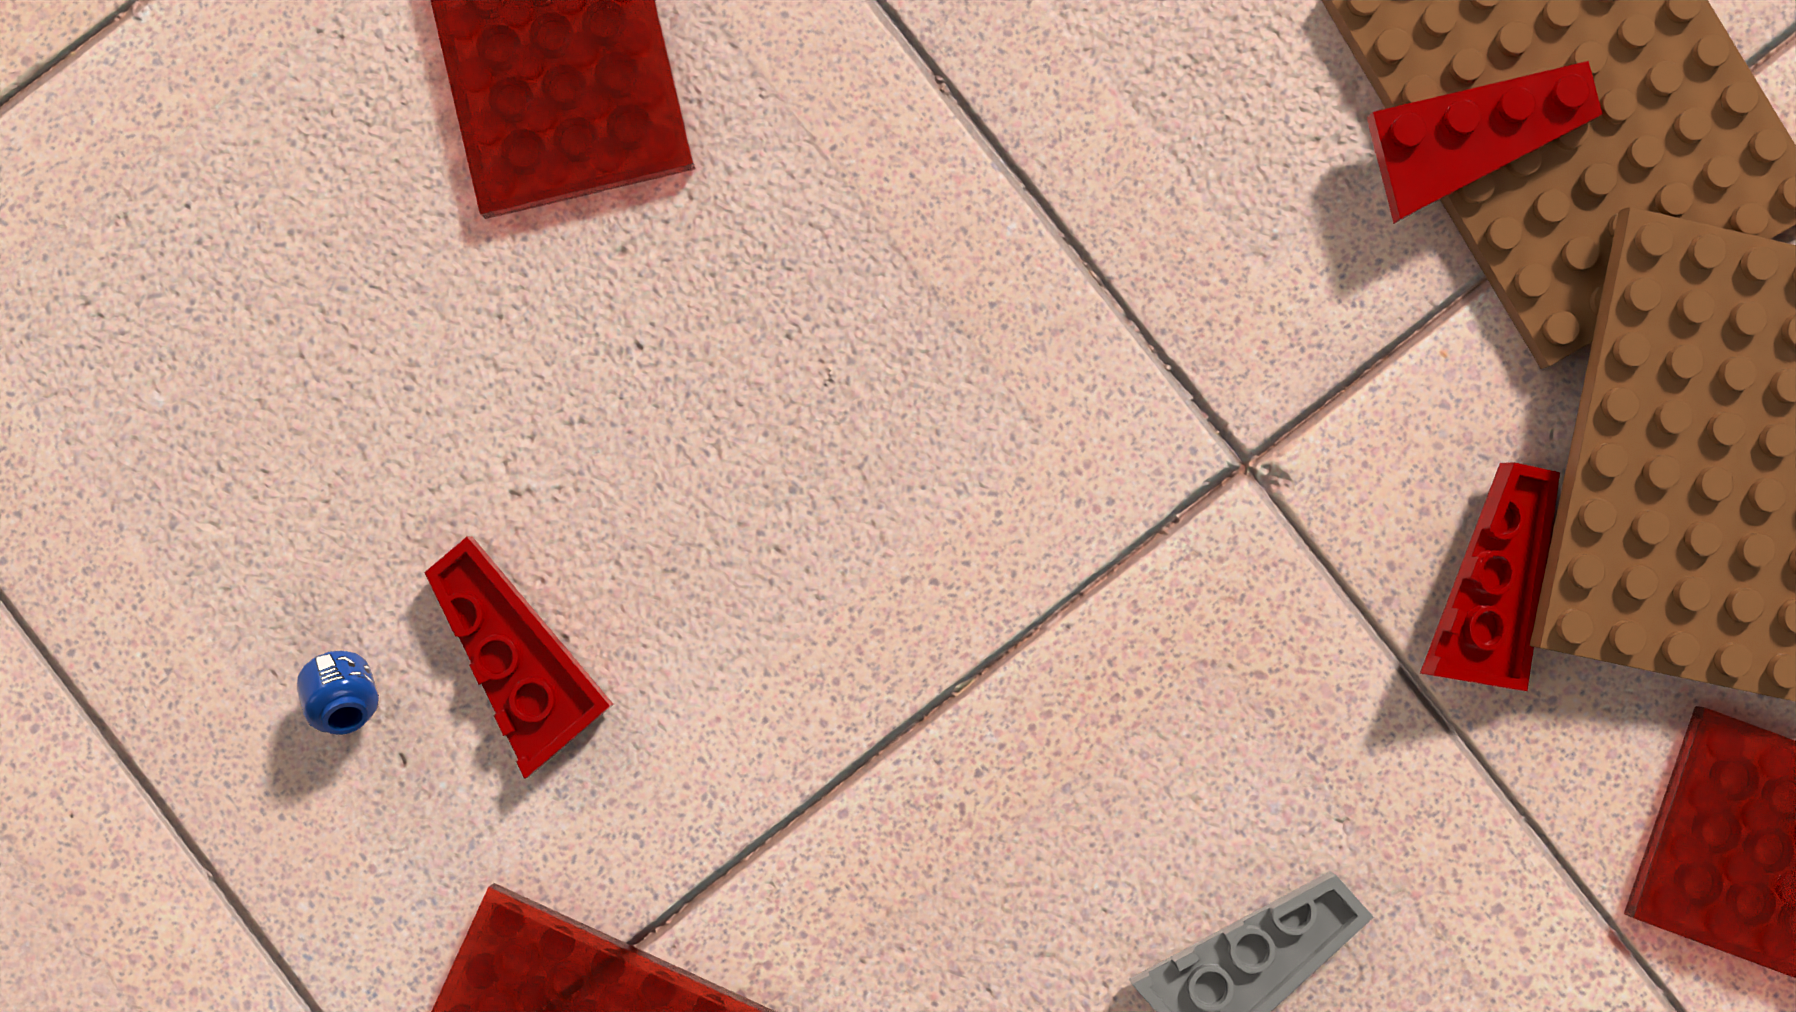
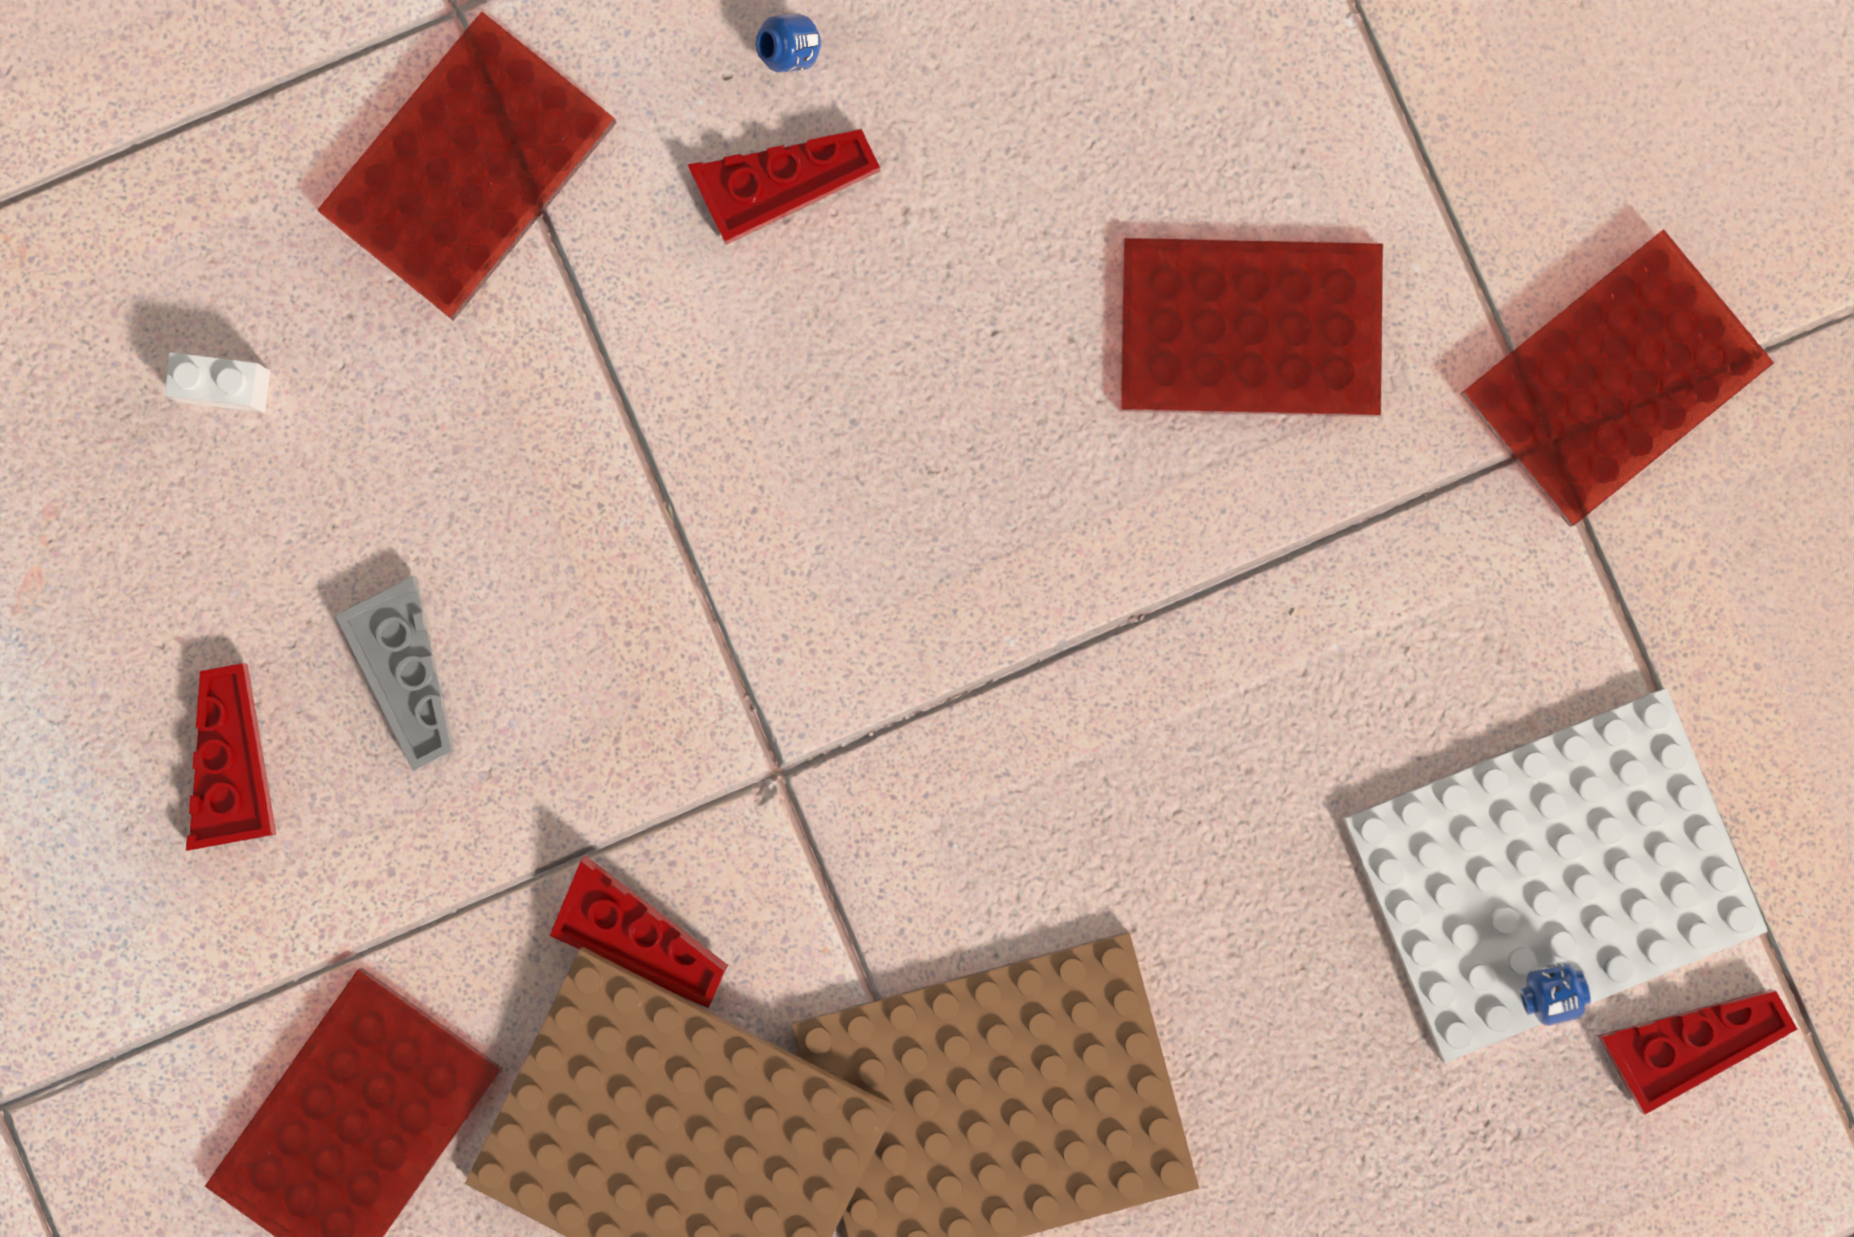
camera: 105 degrees right, 0 degrees up
(1465, 135) = (984, 1006): red wing -> none

